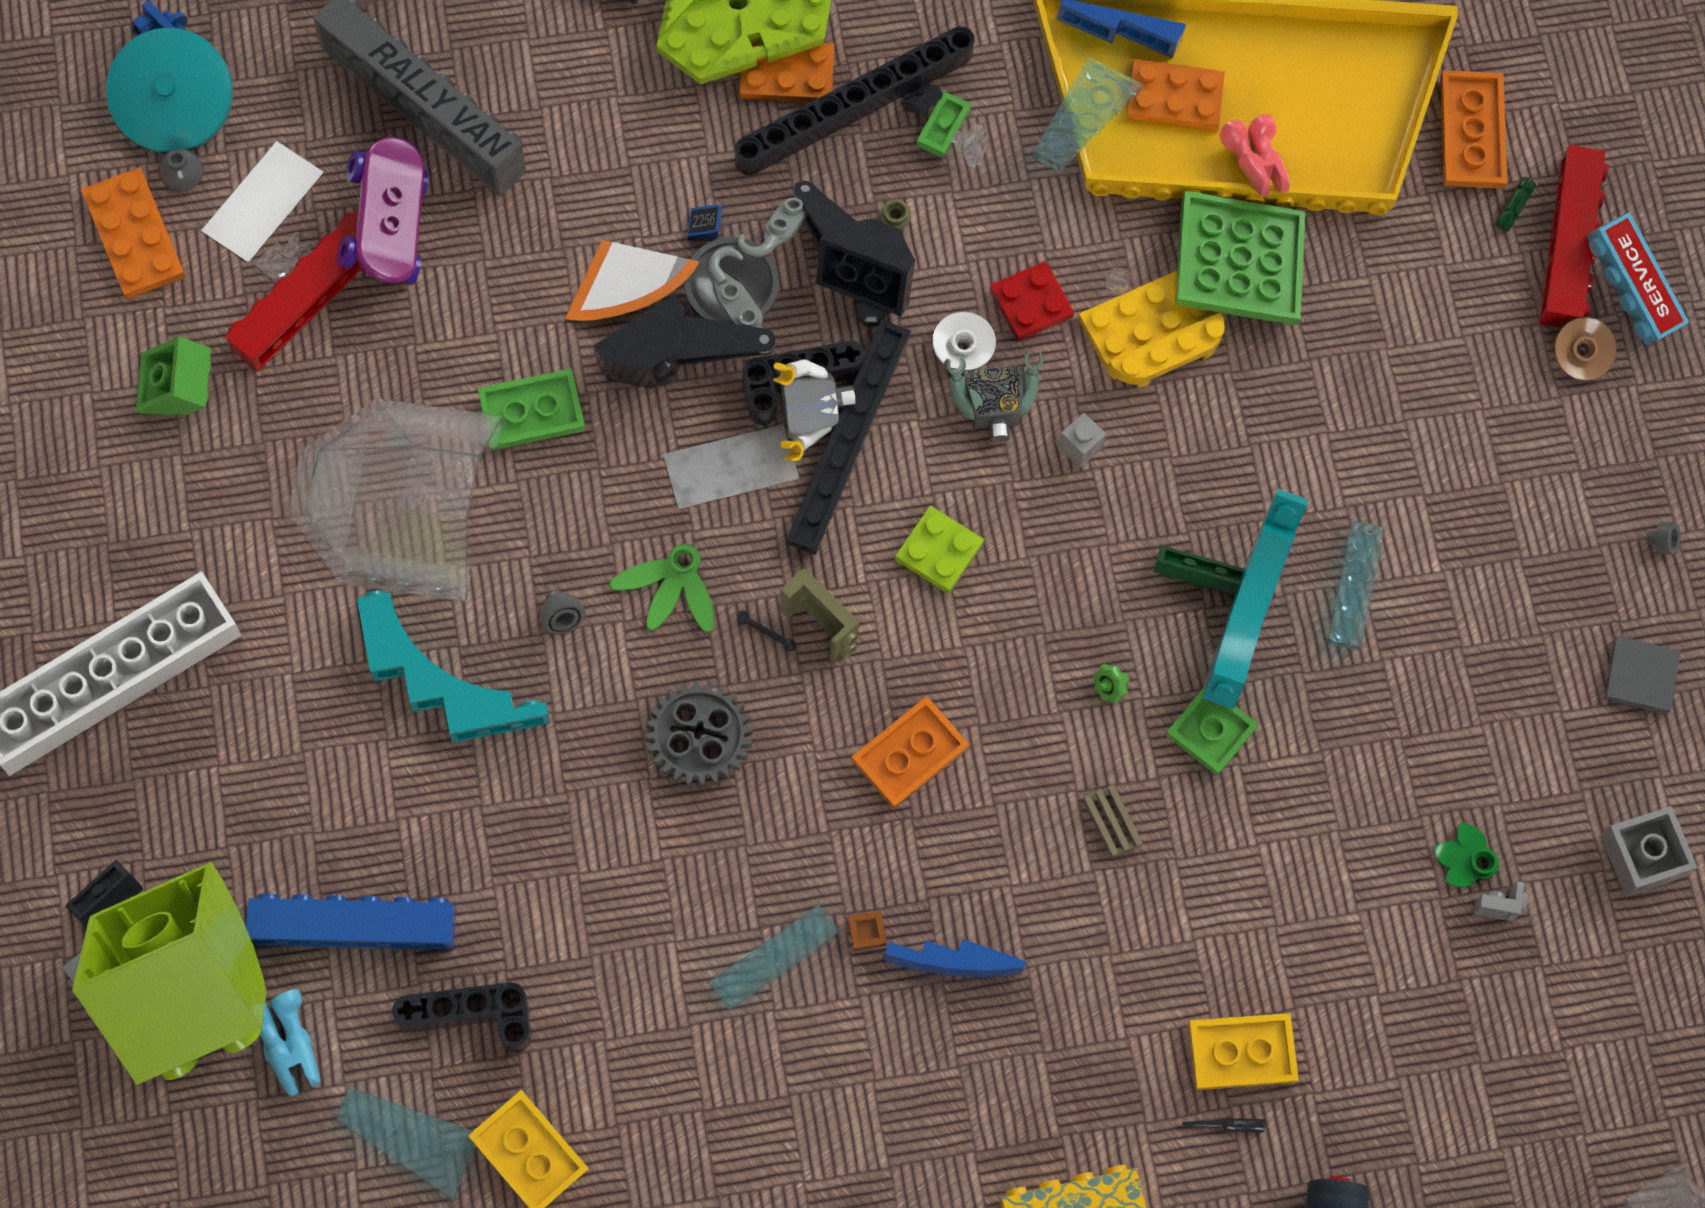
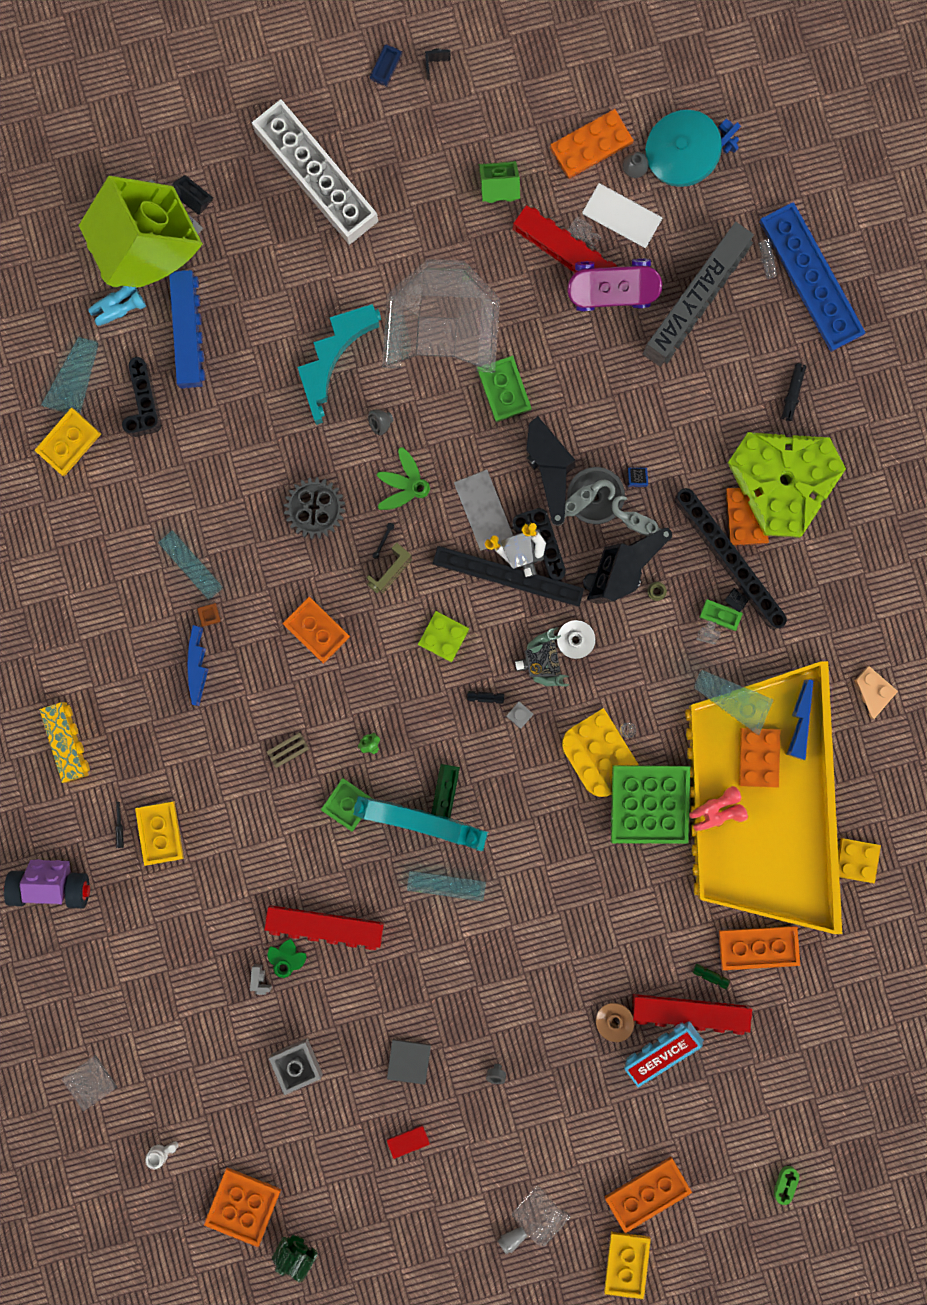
camera: 90 degrees right, 15 degrees up
(626, 281) = (592, 434): sticker -> none
(1031, 301) = (610, 678): red plate -> none
(1046, 493) = (486, 697): none -> black axle
(1416, 786) = (324, 926): none -> red brick

